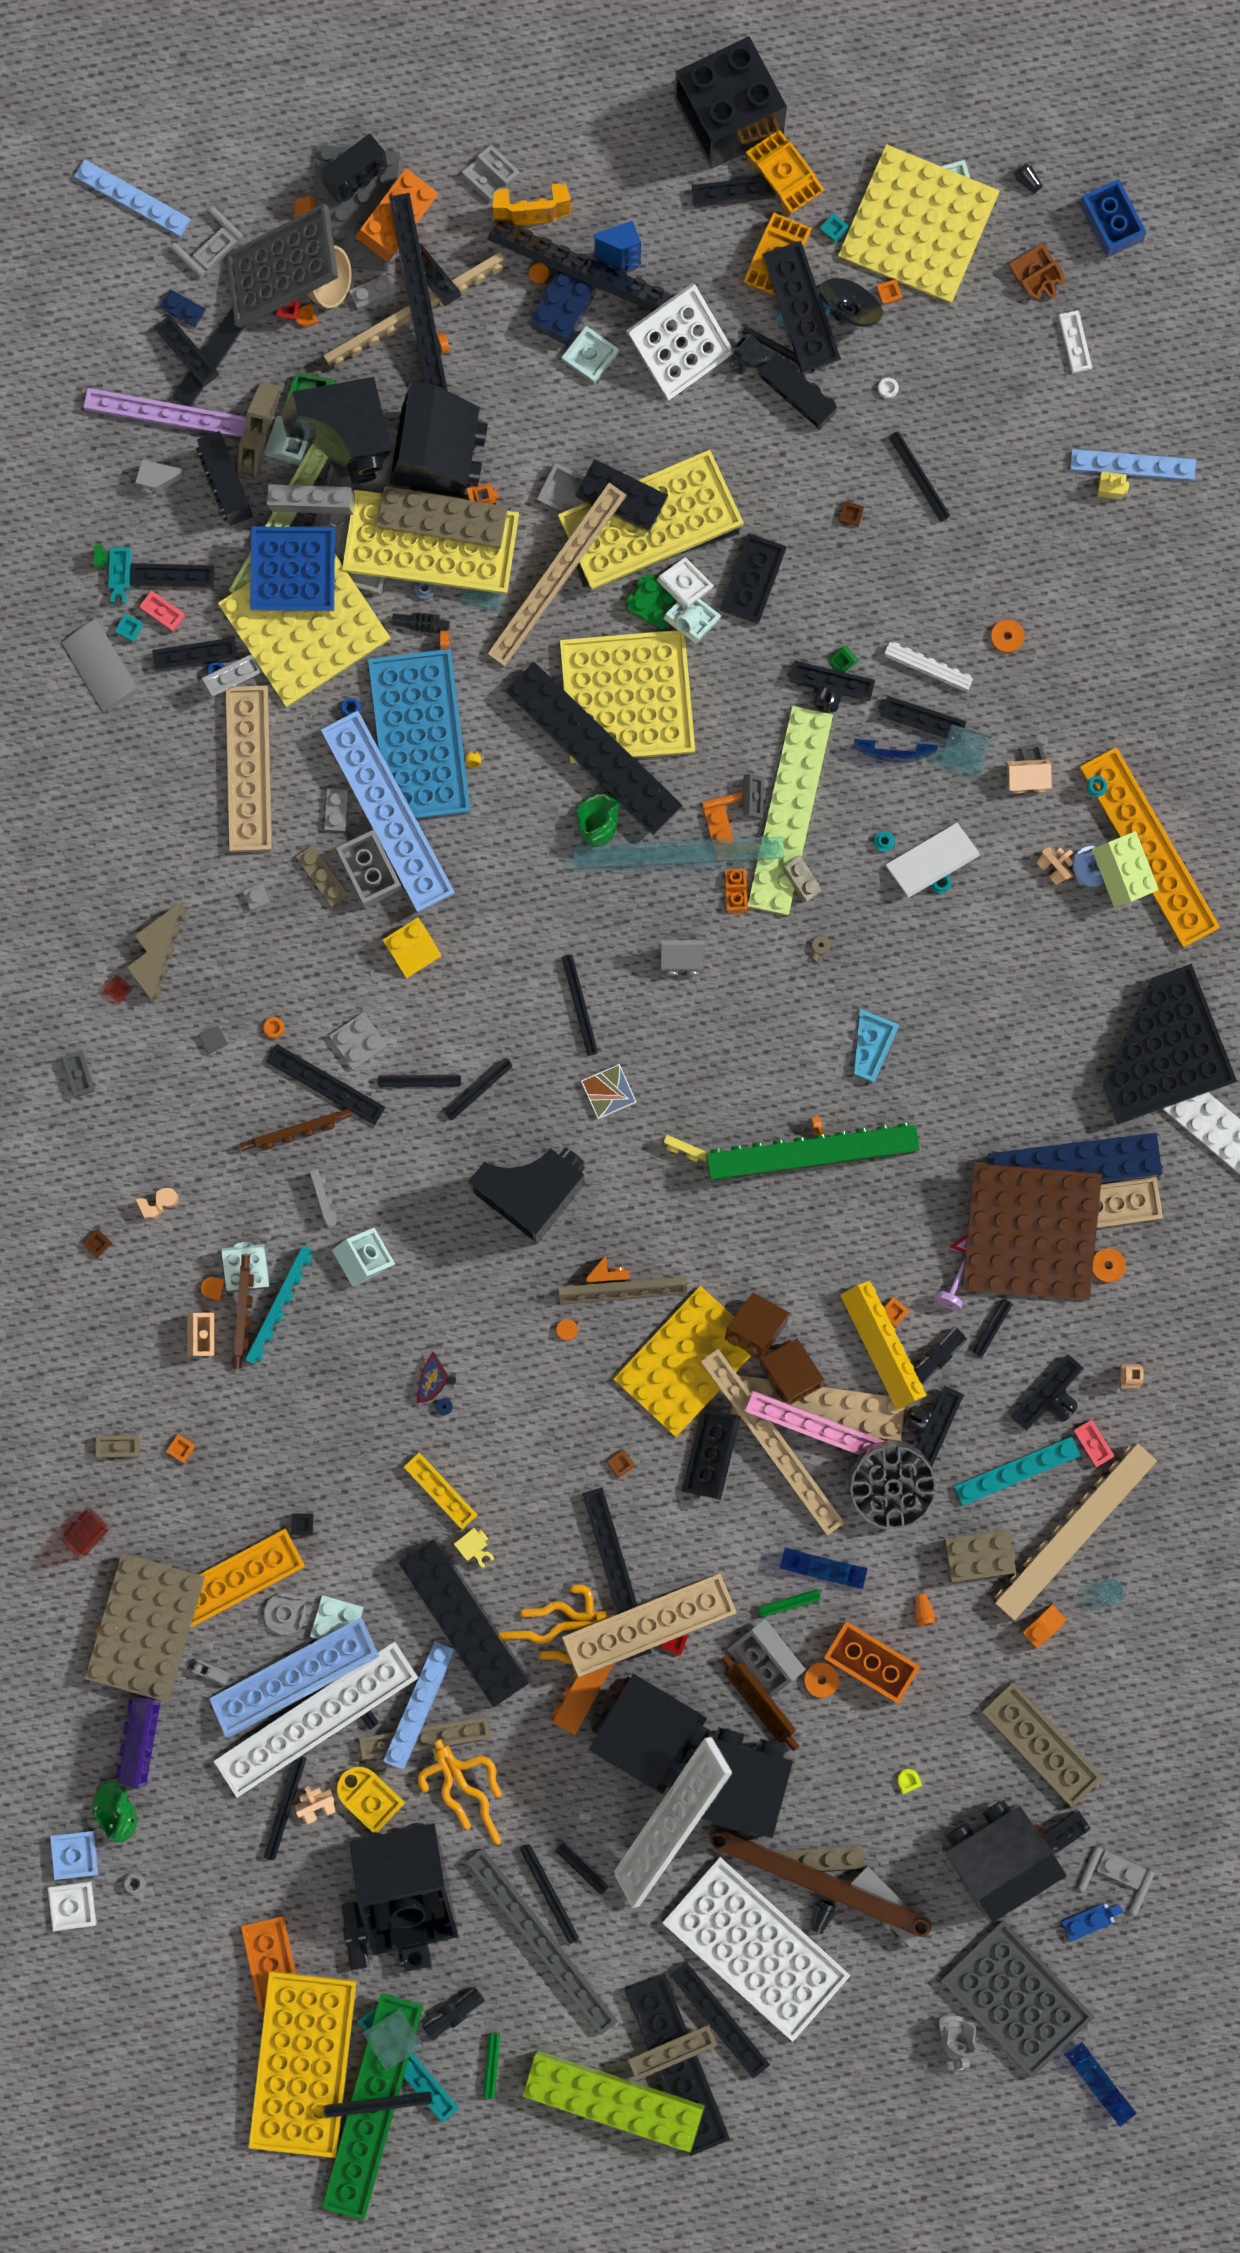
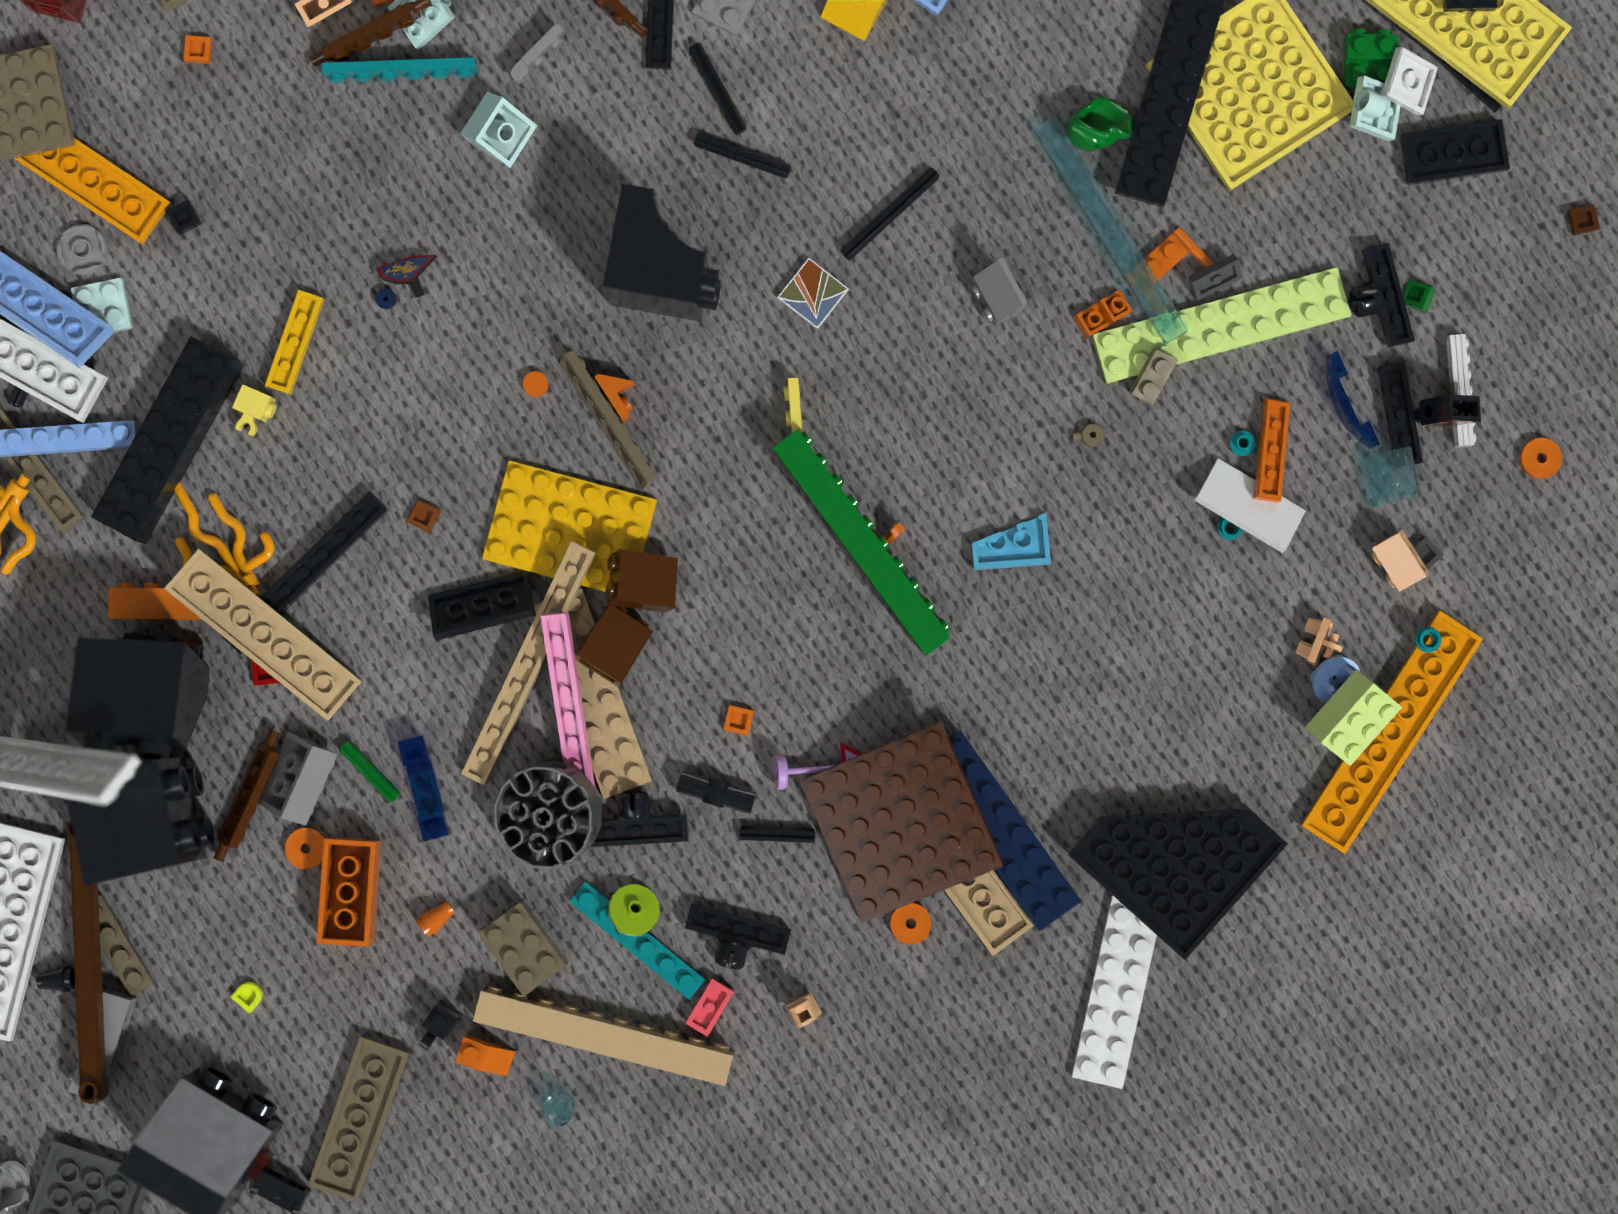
camera: 55 degrees right, 5 degrees up
(883, 1345) = (694, 727): yellow brick -> none
(901, 823) = (1272, 450): none -> orange tile
(936, 690) = (1439, 410): none -> black torso
(997, 1469) = (625, 919): none -> lime plate
(1002, 1646) = (438, 1023): none -> black brick

